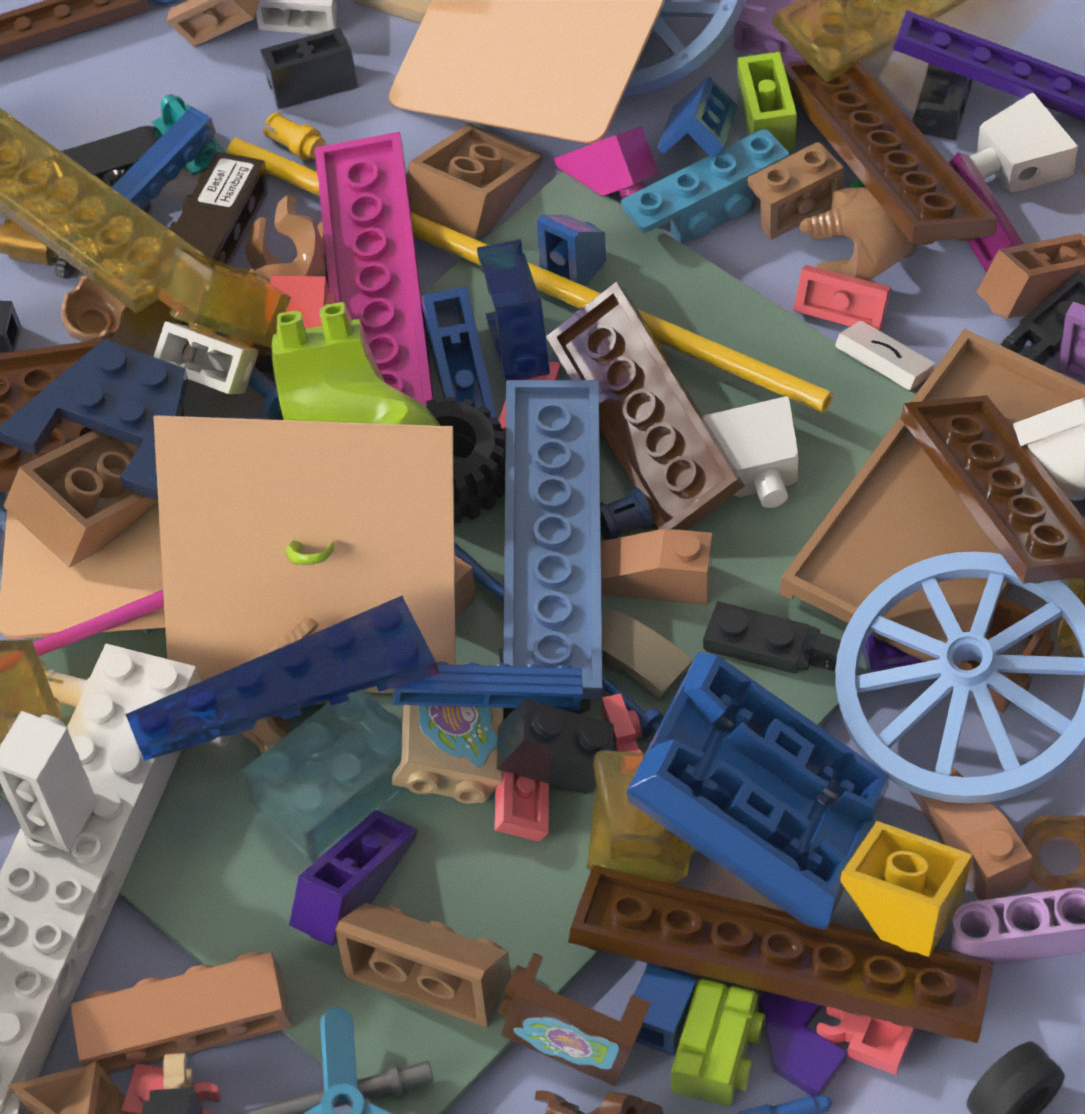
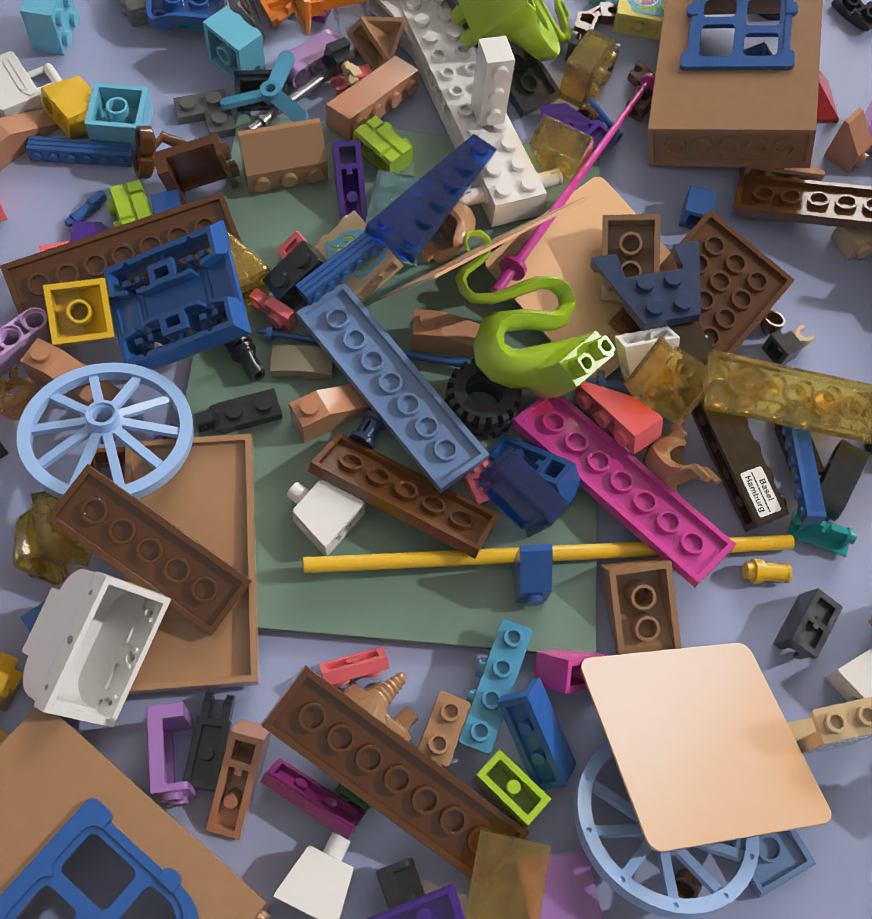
camera: 130 degrees right, 10 degrees up
(248, 902) = (384, 146): none -> lime brick
(885, 355) = (300, 643): white tile -> none

